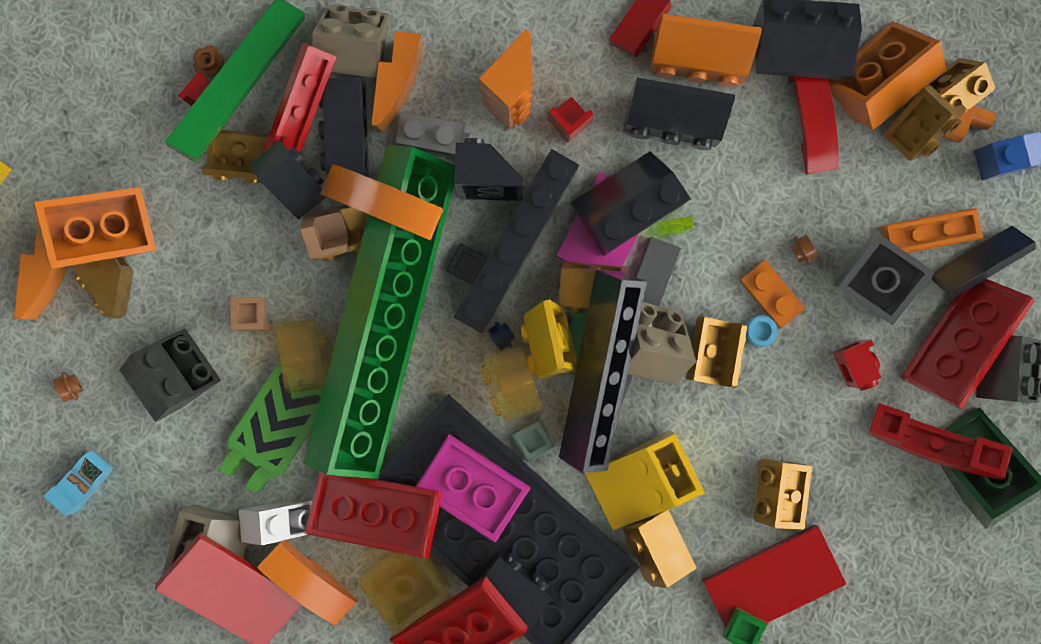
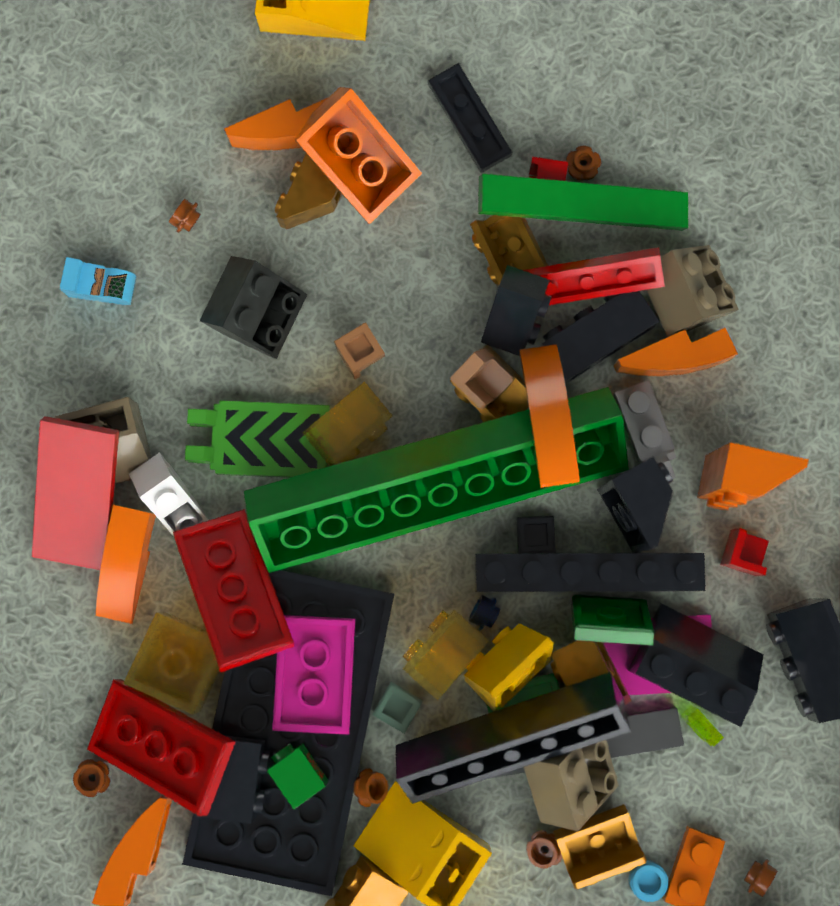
camera: 70 degrees right, 5 degrees down
(121, 125) = (469, 118): none -> black tile
(537, 543) = (297, 774): none -> green brick
(560, 246) = (611, 620): none -> green tile
(578, 493) = (370, 787): none -> dark orange plate
(695, 400) = (537, 855): none -> dark orange plate

